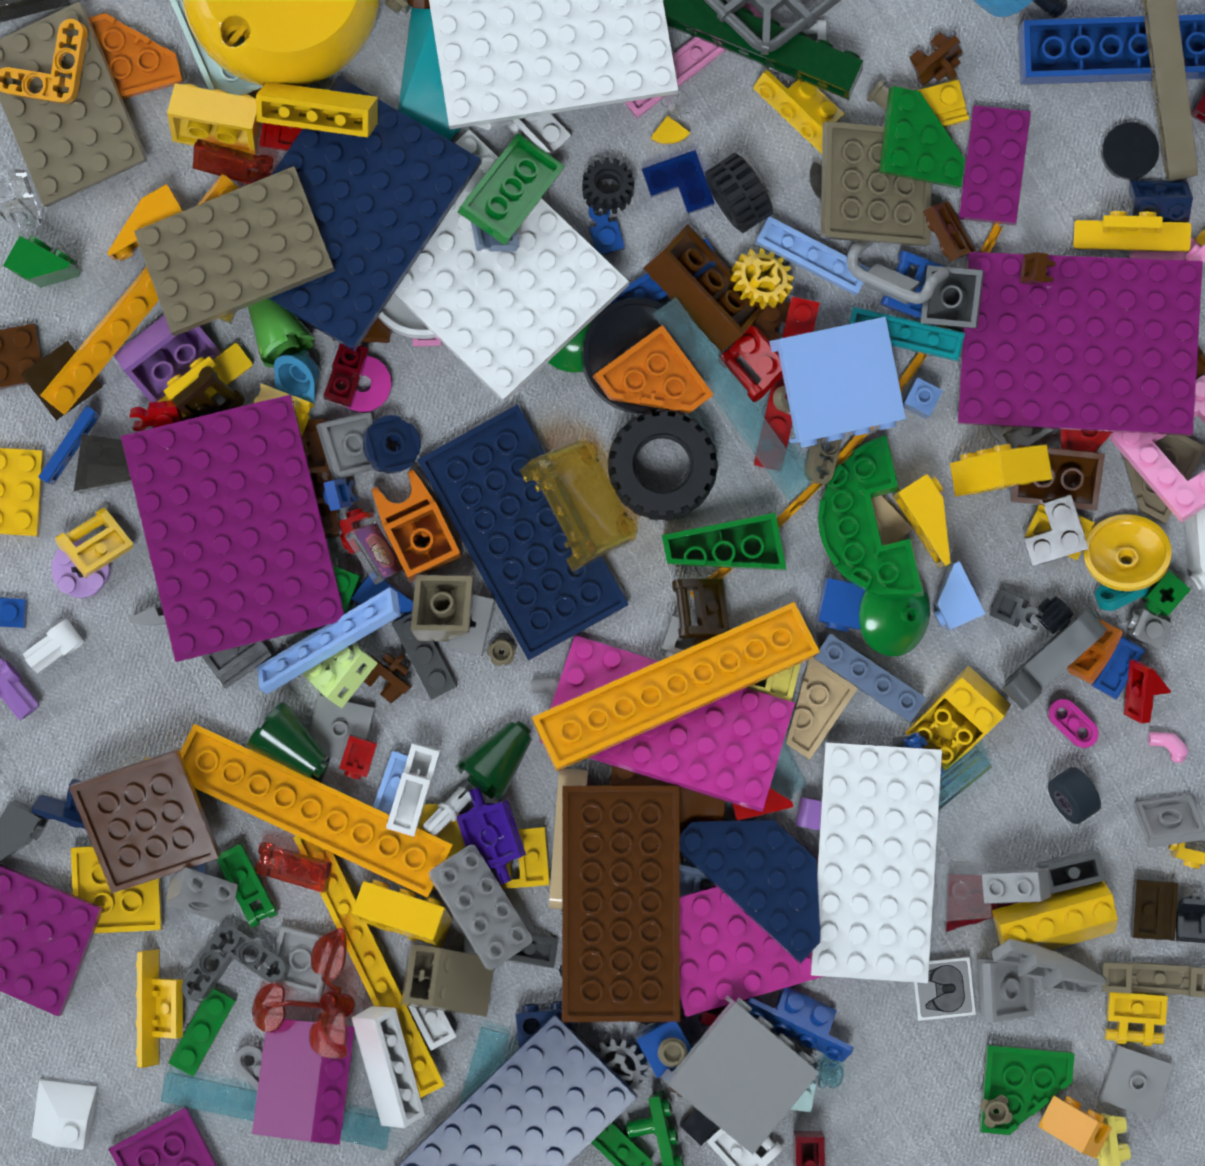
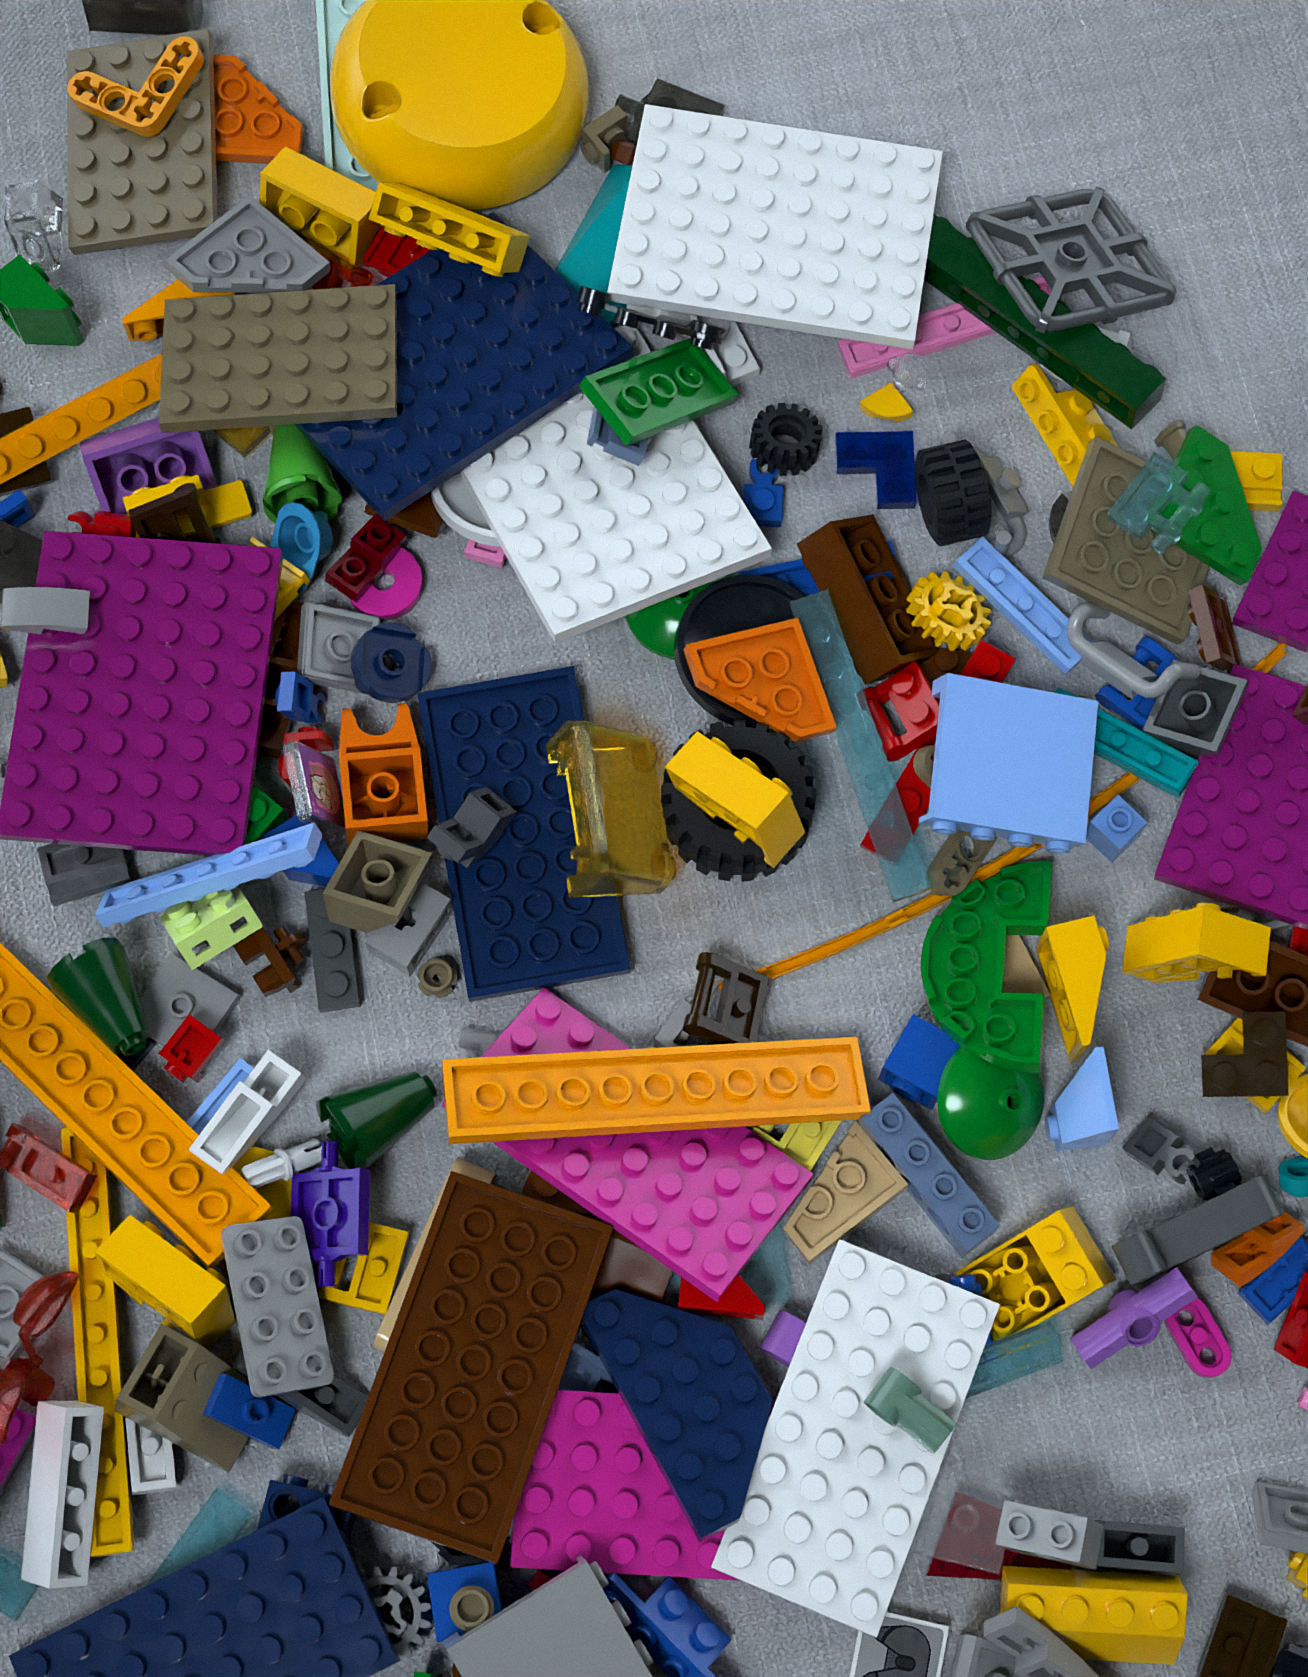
camera: 15 degrees right, 15 degrees down
(147, 497) = (44, 608): none -> light grey slope
(179, 176) = (247, 254): none -> light grey plate
(477, 978) = (257, 1418): none -> blue plate
(492, 546) = (473, 828): none -> dark grey brick
(502, 137) = (701, 333): none -> black plant
(664, 471) = (737, 794): none -> yellow wedge
(732, 544) = (792, 931): green wedge -> none
(772, 171) = (1002, 488): none -> light grey piece
(877, 155) = (1149, 495): none -> clear light blue plate
(901, 838) = (901, 1404): none -> sand green piece
(939, 63) = (1263, 424): reddish brown hips -> none
(1029, 727) = (1133, 1318): none -> medium lavender piece
(1074, 795) = (1171, 1438): black wheel -> none

